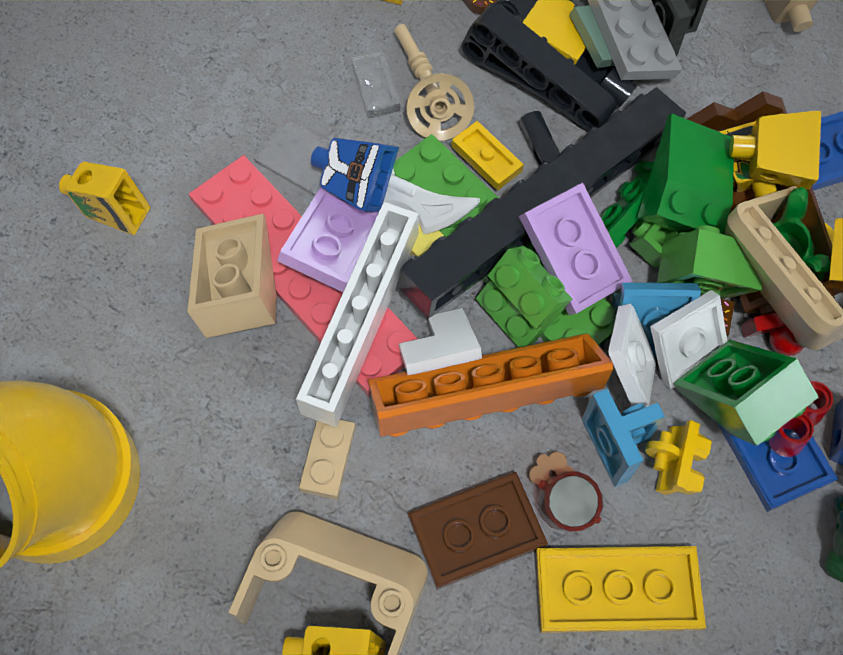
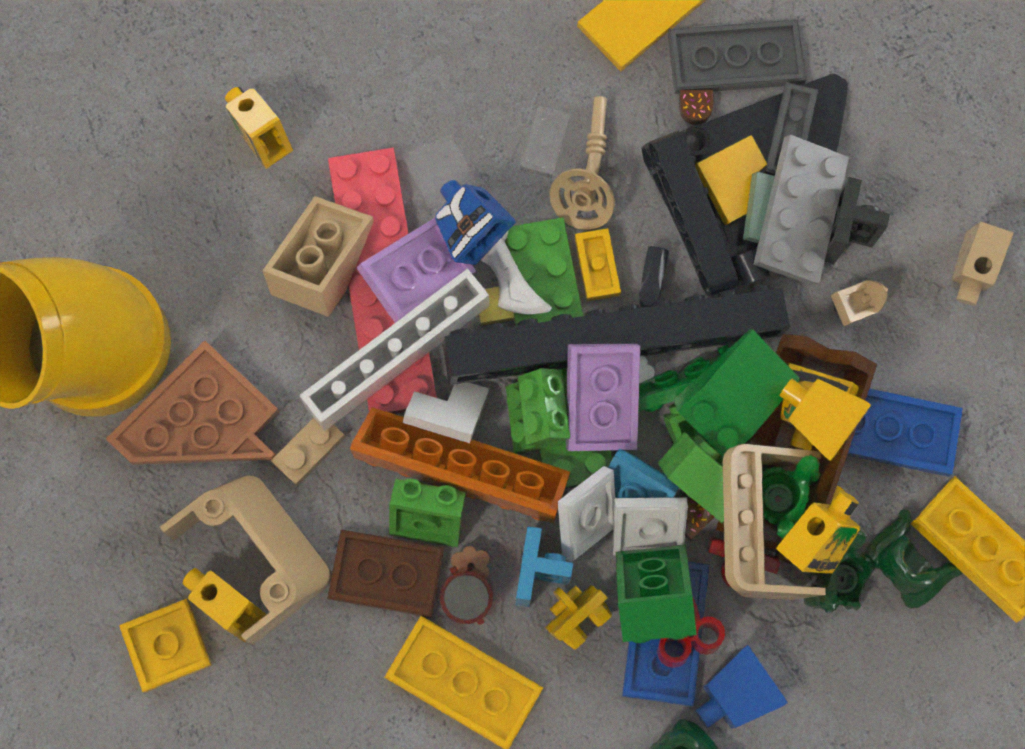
camera: 30 degrees right, 10 degrees up
(198, 488) = (197, 416): none -> nougat wing
(484, 443) = (426, 512): none -> bright green plate
(723, 67) = (860, 301): none -> tan plate

